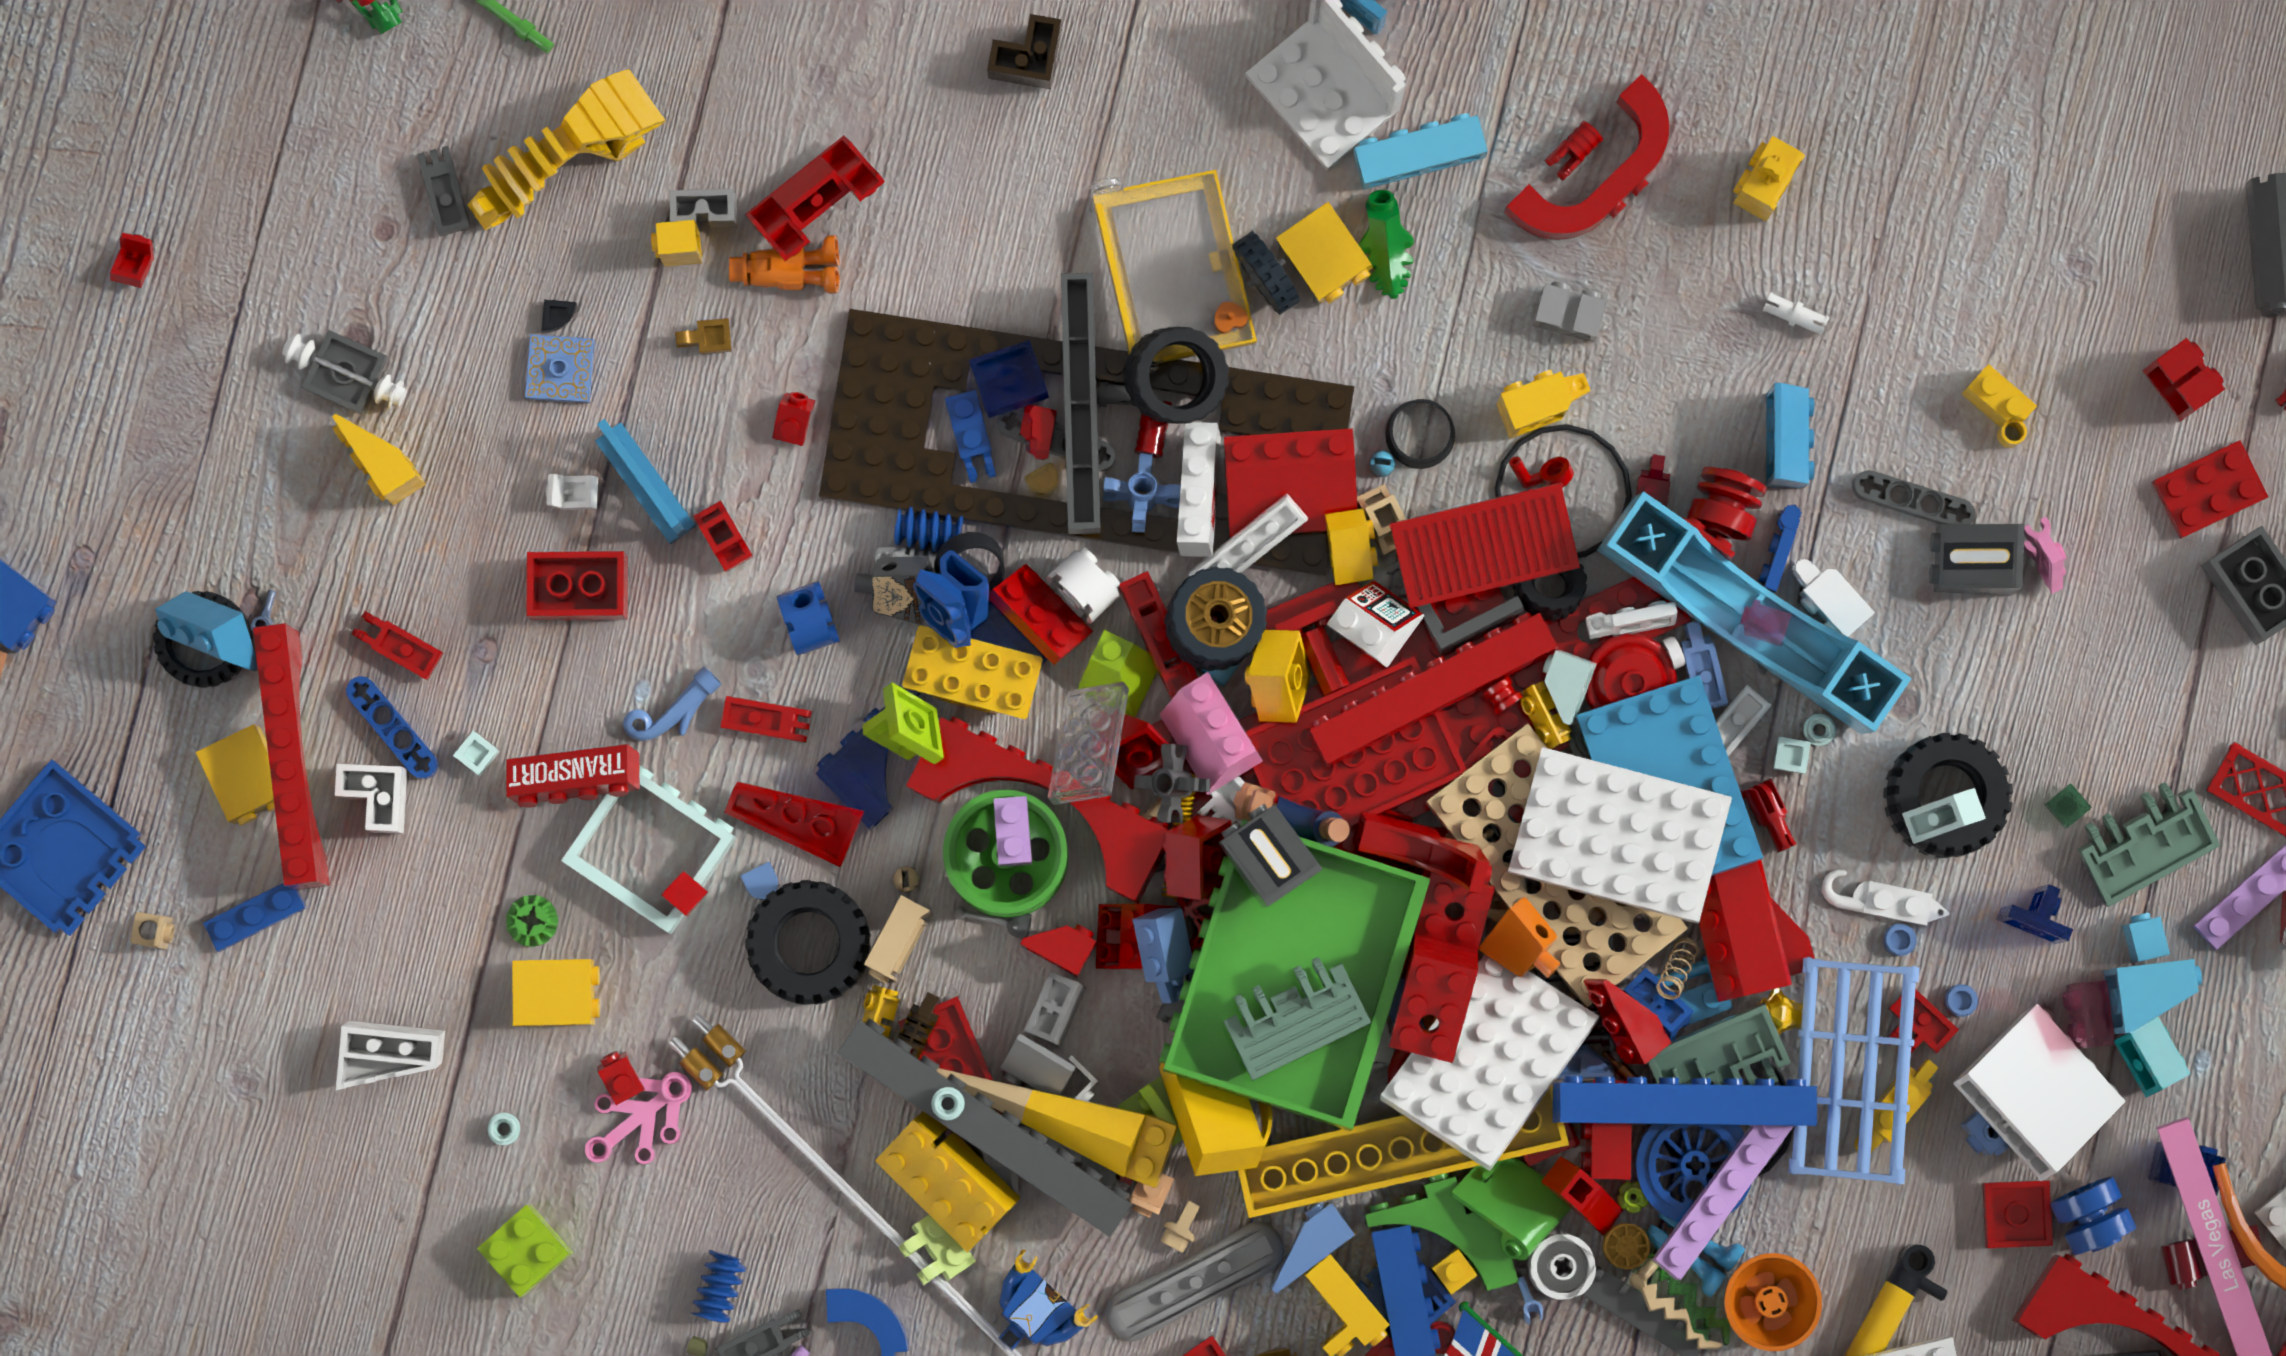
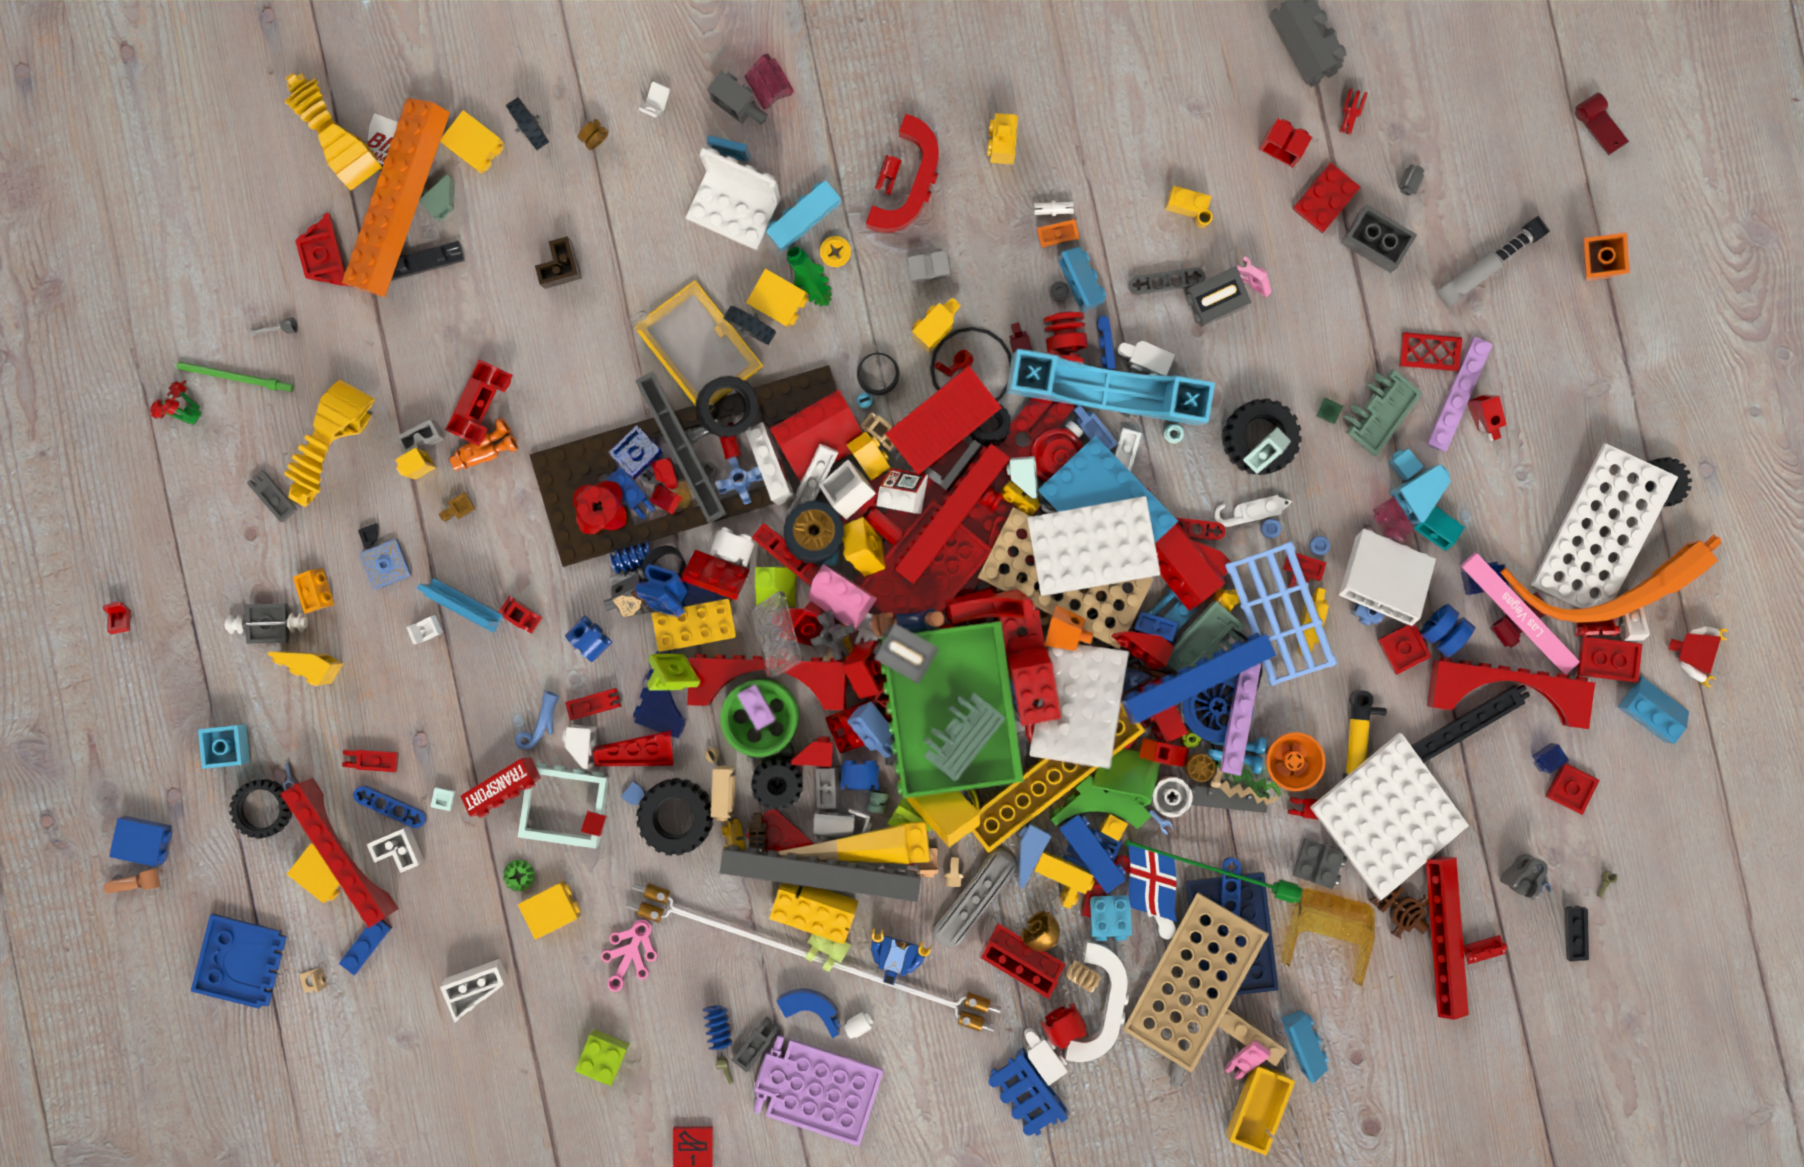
camera: 30 degrees left, 5 degrees up
(196, 521) = (224, 746): none -> medium azure brick
(207, 628) = (256, 806): dark azure slope -> none
(436, 356) = (313, 590): none -> light orange bracket
(493, 1129) = (554, 1000): light aqua plate -> none
(577, 585) = (452, 681): red brick -> none
(619, 1077) = (607, 938): red bracket -> none
(722, 766) = (580, 743): none -> white slope
(793, 418) = (527, 530): red bracket -> none
(928, 456) = (613, 513): none -> red brick
(937, 1103) = (793, 879): light aqua plate -> none
(991, 986) = (777, 796): none -> black wheel
(1019, 467) = (665, 499): none -> red tile
(1111, 1013) = (859, 776): none -> blue brick
(1118, 1066) = (877, 801): none -> sand green wheel
(1229, 316) = (741, 359): orange piece -> none
(1294, 579) = (847, 489): none -> white piece
(1452, 214) = (837, 243): none -> yellow gear
(1628, 620) = (1044, 422): white hinge -> none
(1682, 958) = (1155, 613): tan piece -> none
(1747, 439) = (1059, 291): none -> dark grey tile
(1765, 623) = (1118, 389): bracket -> none
(1770, 812) = (1168, 492): red arm -> none
(1775, 876) = (1188, 523): none -> red beam
(1784, 354) = (1057, 233): none -> orange plate
(1791, 755) = (1165, 455): light aqua plate -> none
(2036, 918) = (1342, 474): clear blue bracket -> none

